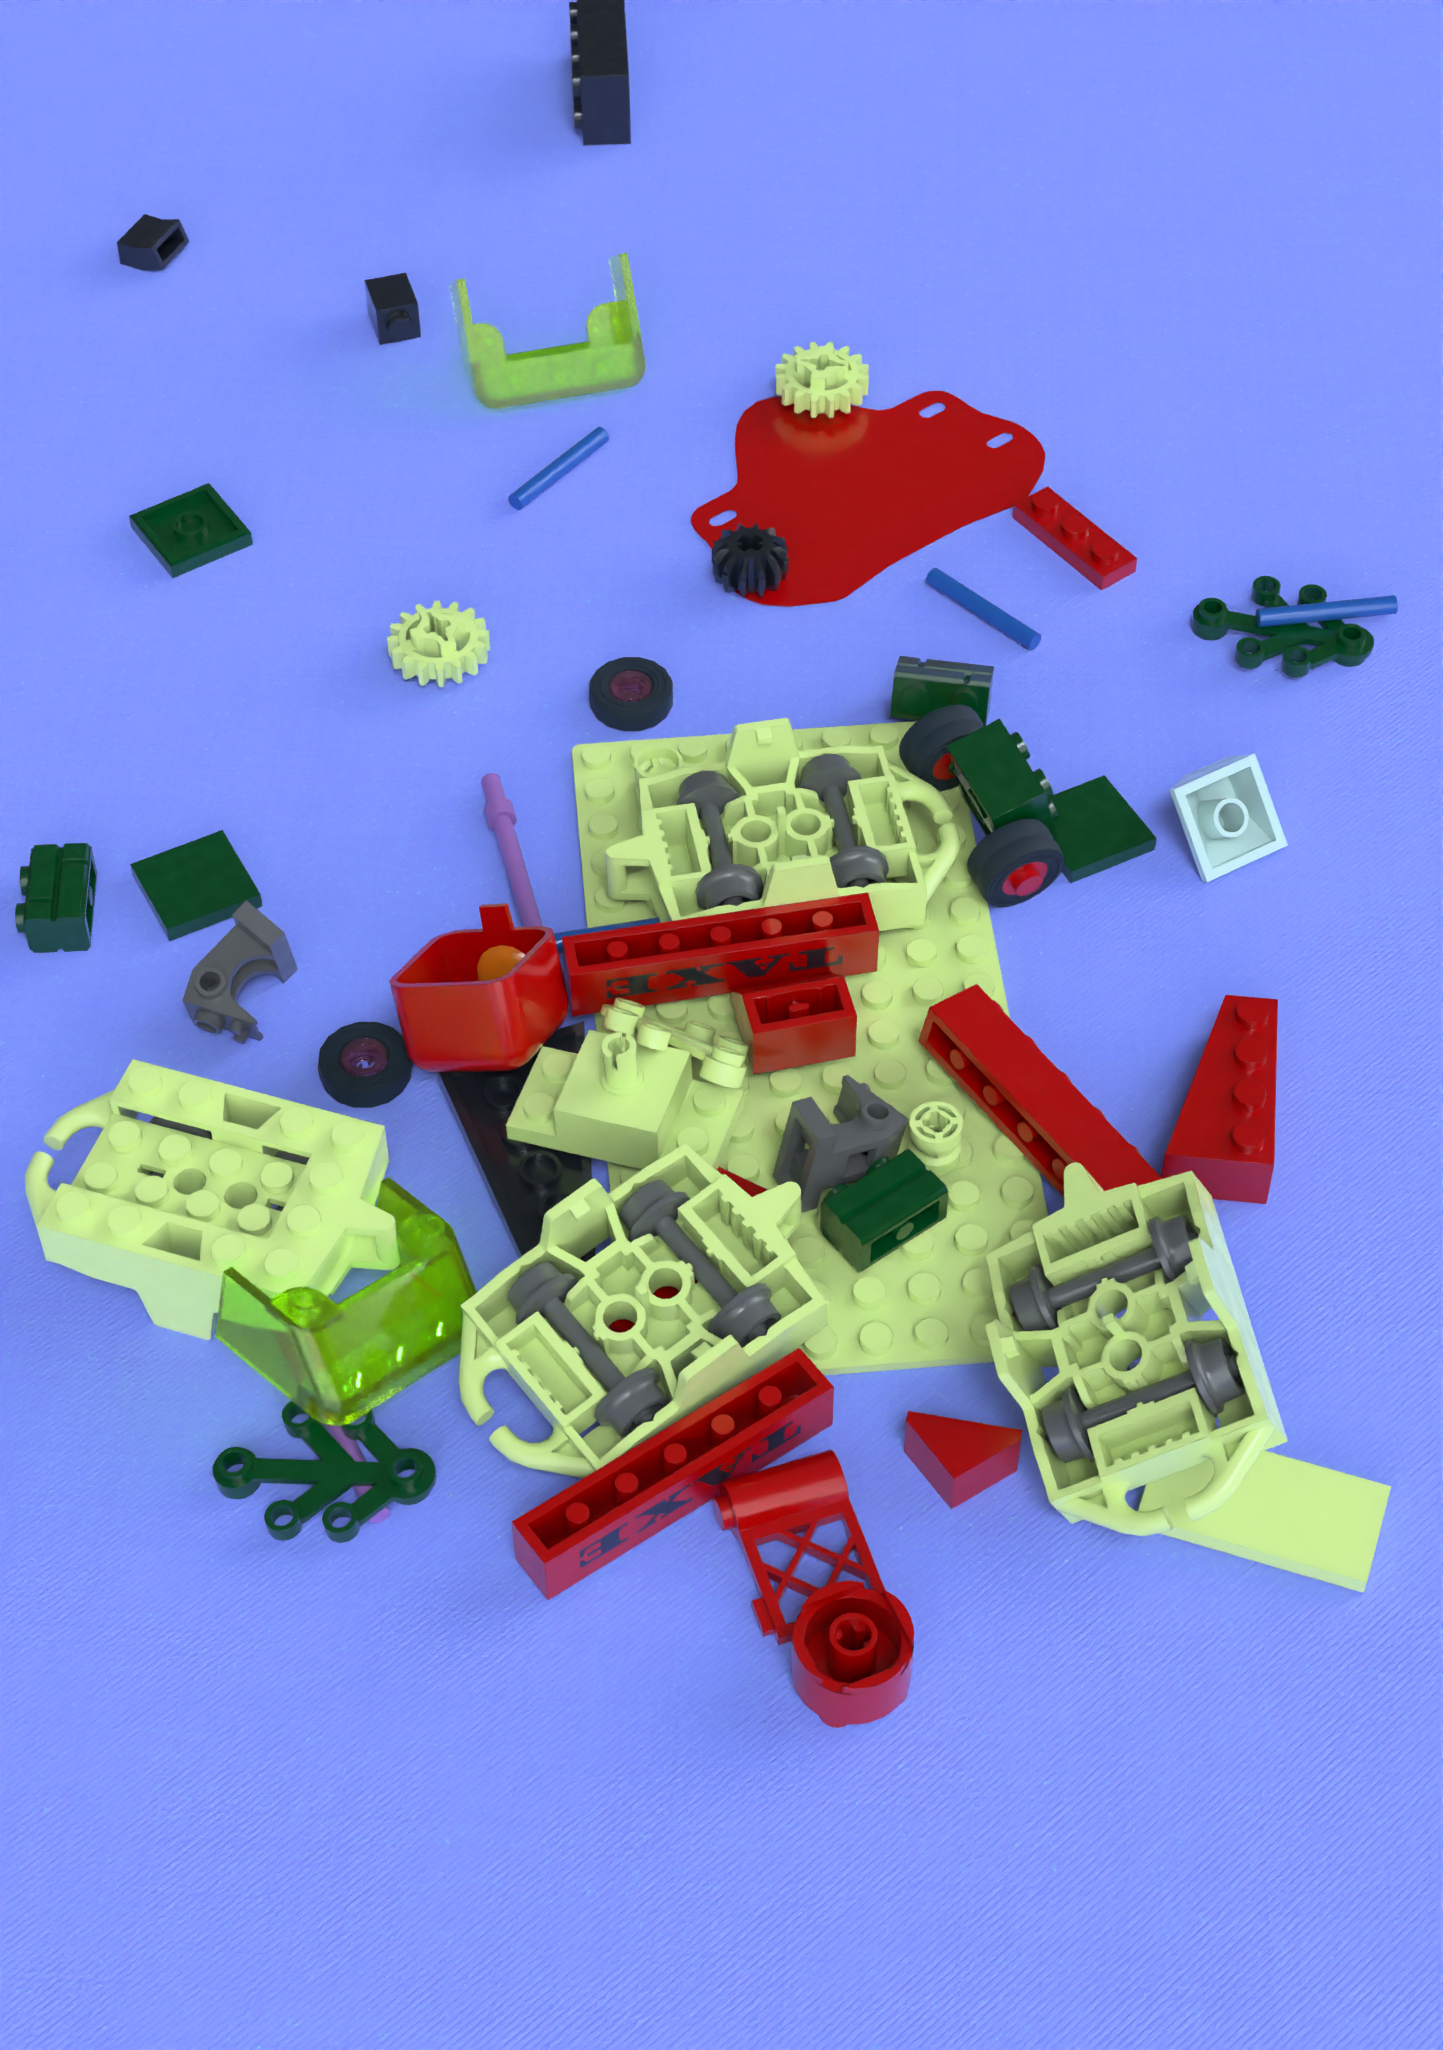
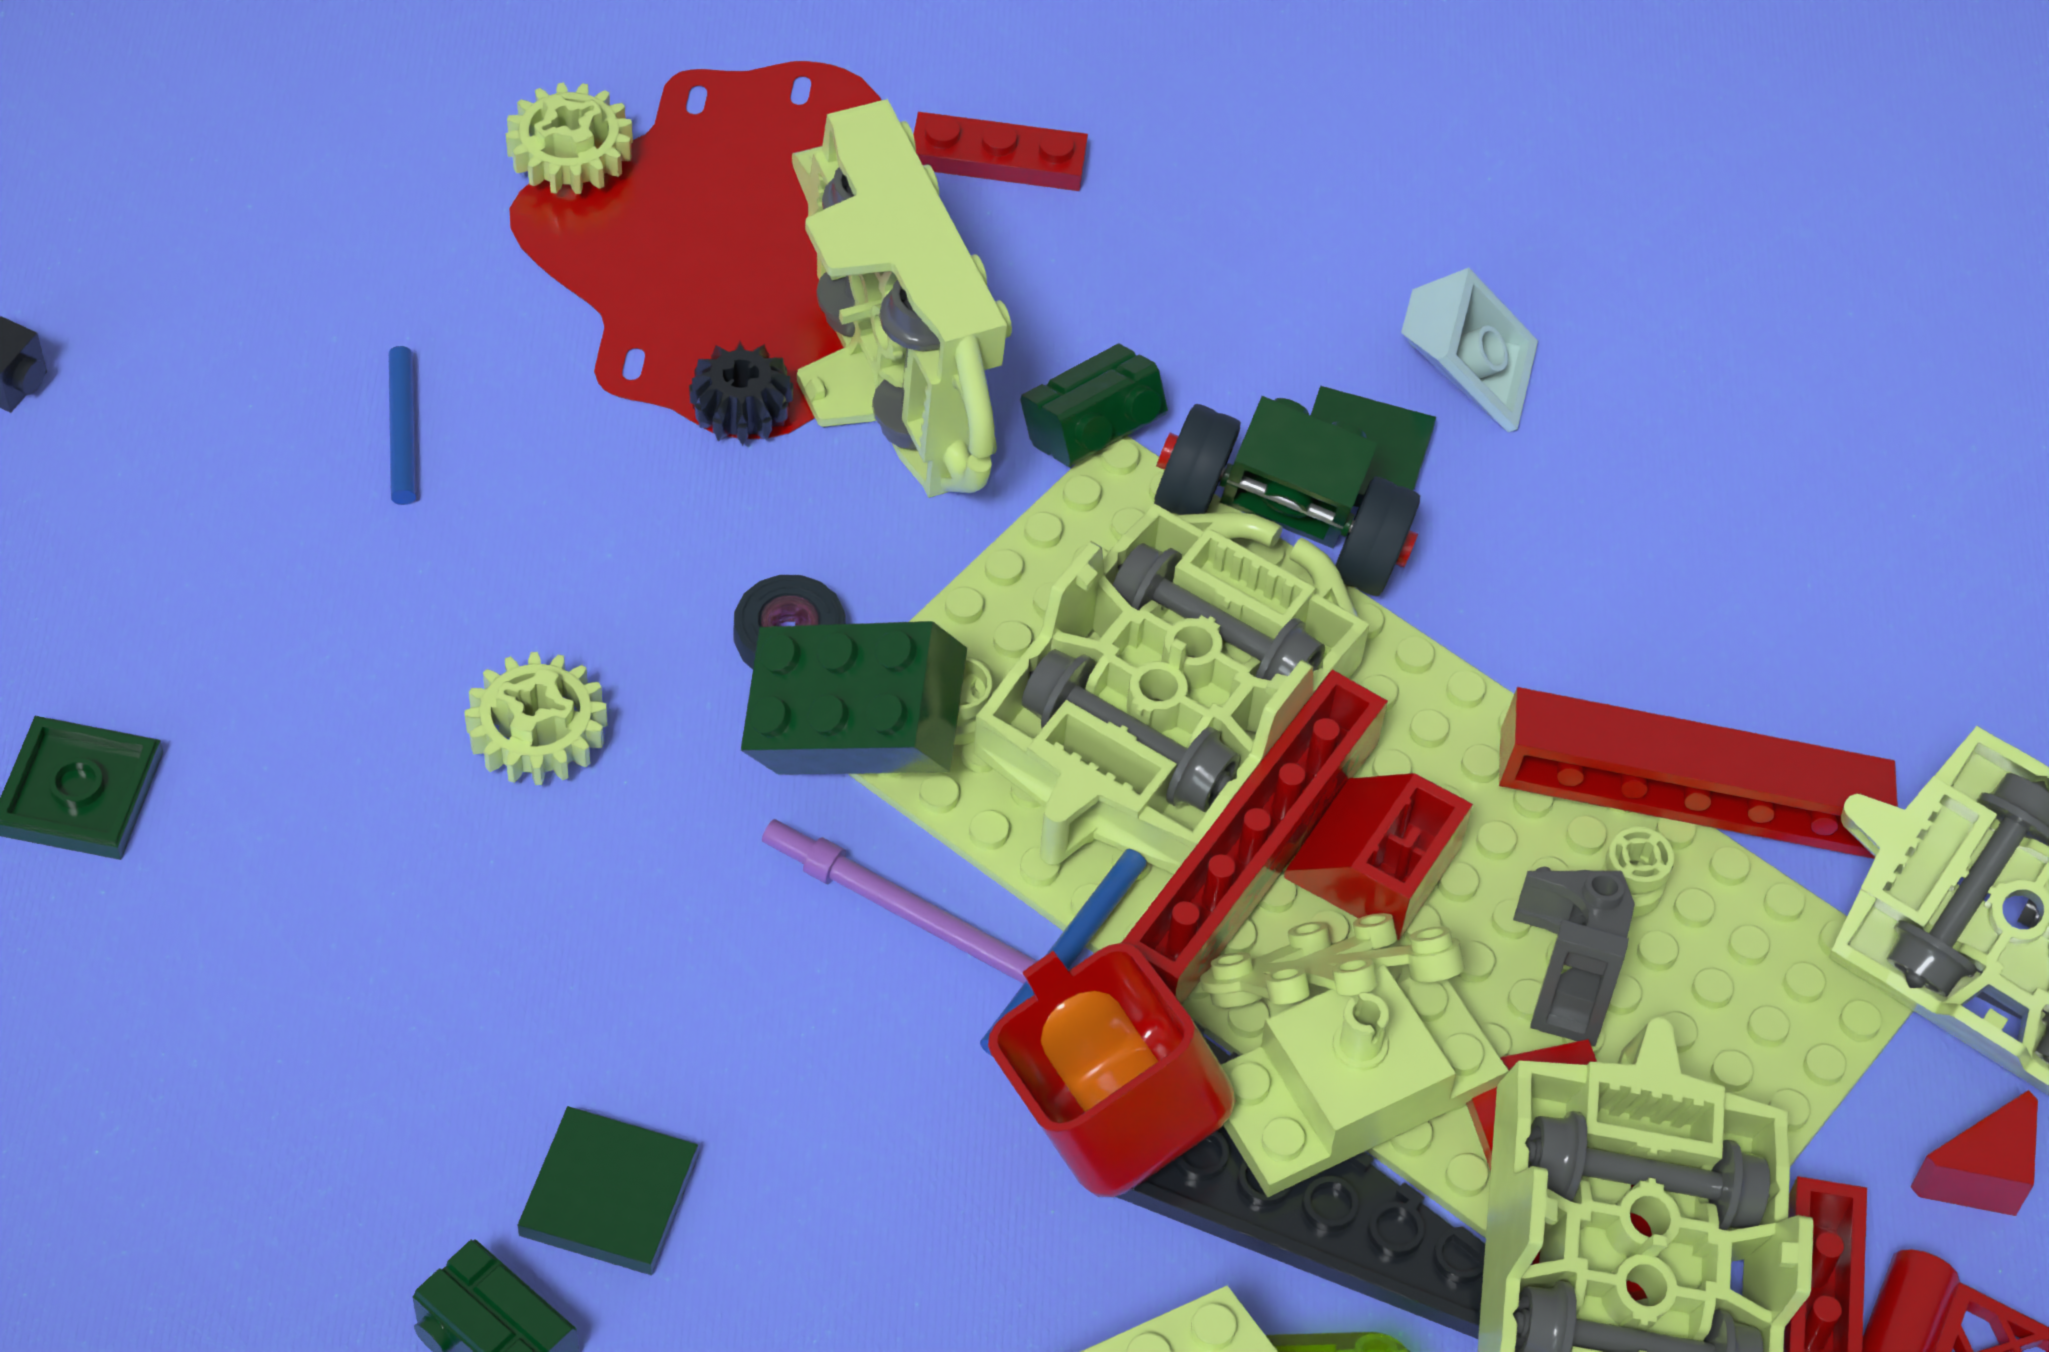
camera: 50 degrees left, 5 degrees up
(247, 950) = (795, 1214): dark grey tile -> none
(359, 1085) = (1022, 1272): black bush -> none
(590, 730) = (854, 698): none -> dark green brick
(606, 362) = (297, 275): clear neon green windscreen -> none
(862, 541) = (901, 301): none -> yellowish green piece
(883, 1209) = (1678, 974): dark green brick -> none
(983, 608) = (1041, 288): blue bar -> none
(1231, 1105) = (1805, 633): red wedge -> none
(1326, 611) = (1319, 75): blue bar -> none
(1335, 641) = (1357, 96): dark green plant -> none

